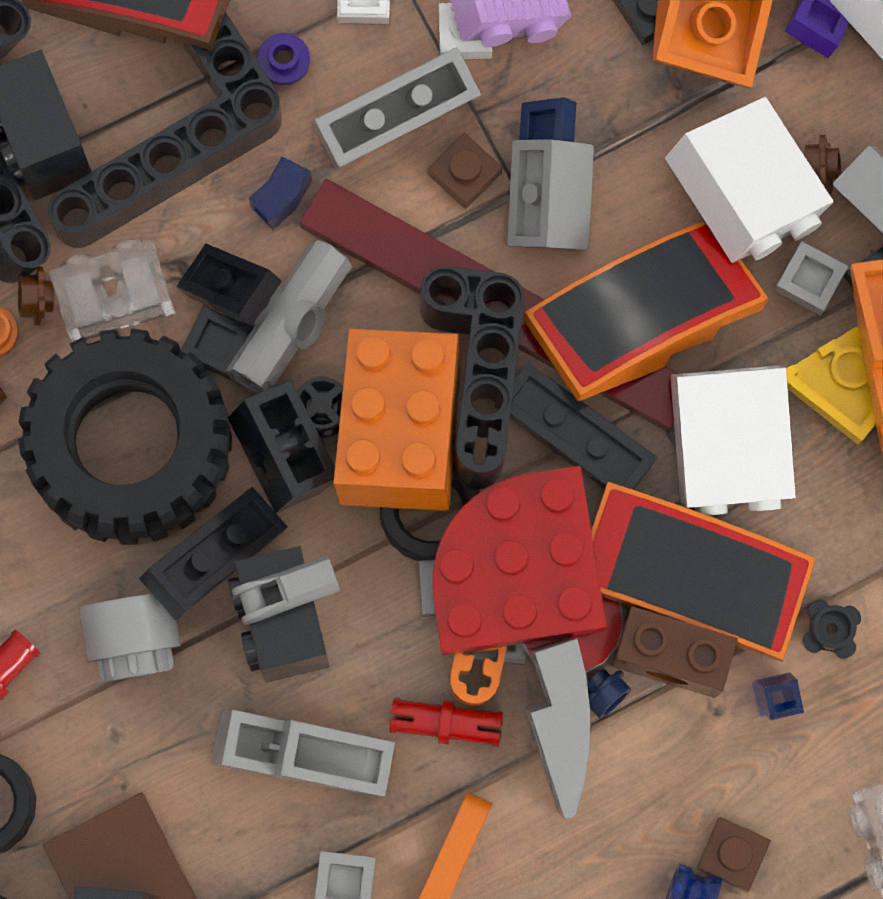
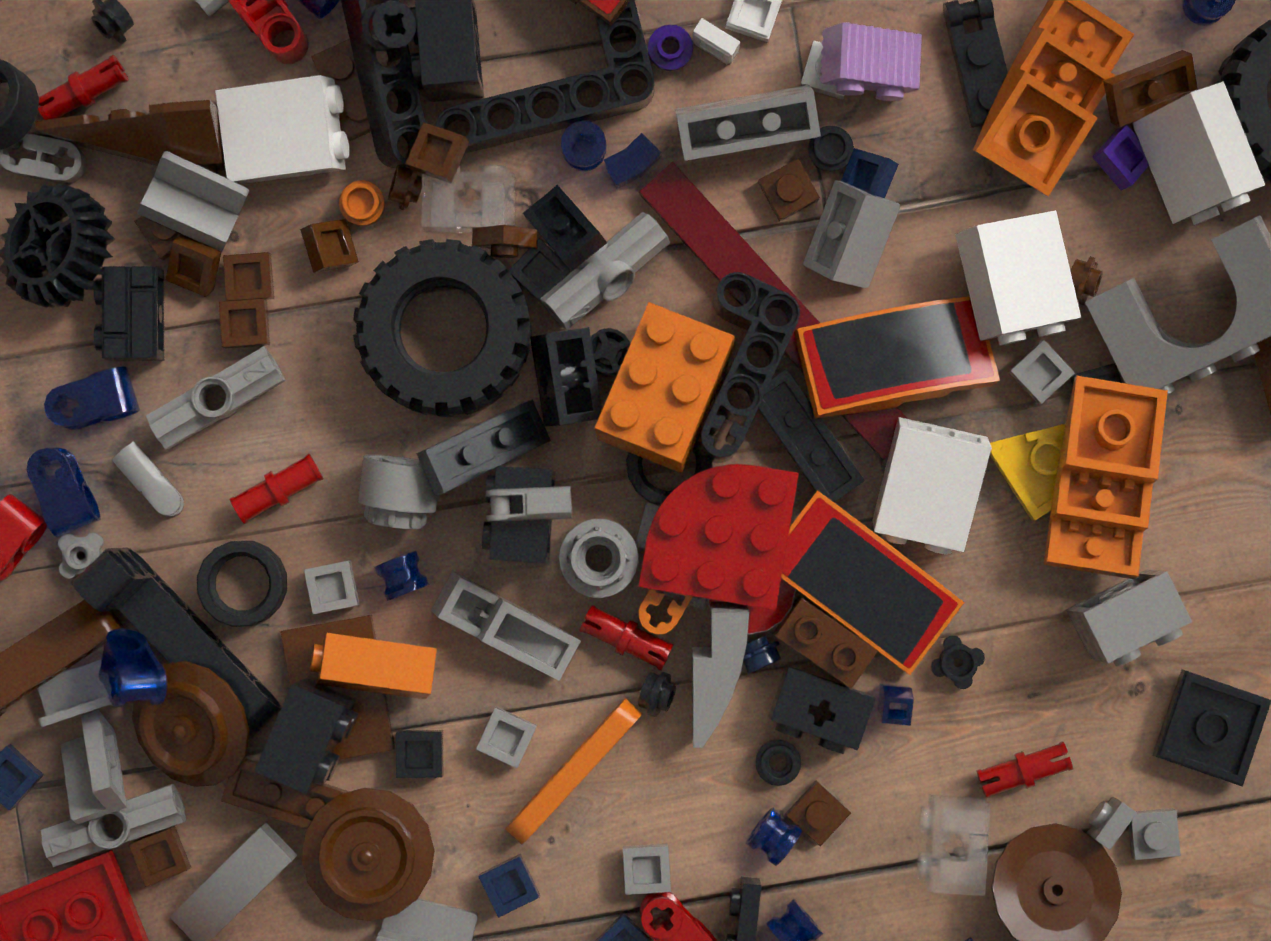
camera: 25 degrees right, 10 degrees up
(59, 242) = (437, 152): none -> reddish brown plate
(87, 774) = (331, 587): none -> light grey plate
(161, 729) = (401, 575): none -> clear blue wheel
(164, 844) = (374, 665): none -> orange brick
(166, 316) = (504, 239): none -> reddish brown plate
(227, 202) = (586, 154): none -> clear blue wheel
(332, 36) = (715, 41): none -> white tile
(381, 610) = (592, 582): none -> light grey piece
(496, 112) = (832, 149): none -> black plate
(502, 774) = (657, 693): none -> black plate
(683, 802) = (782, 776): none -> black plate
(723, 715) = (848, 707): none -> black brick

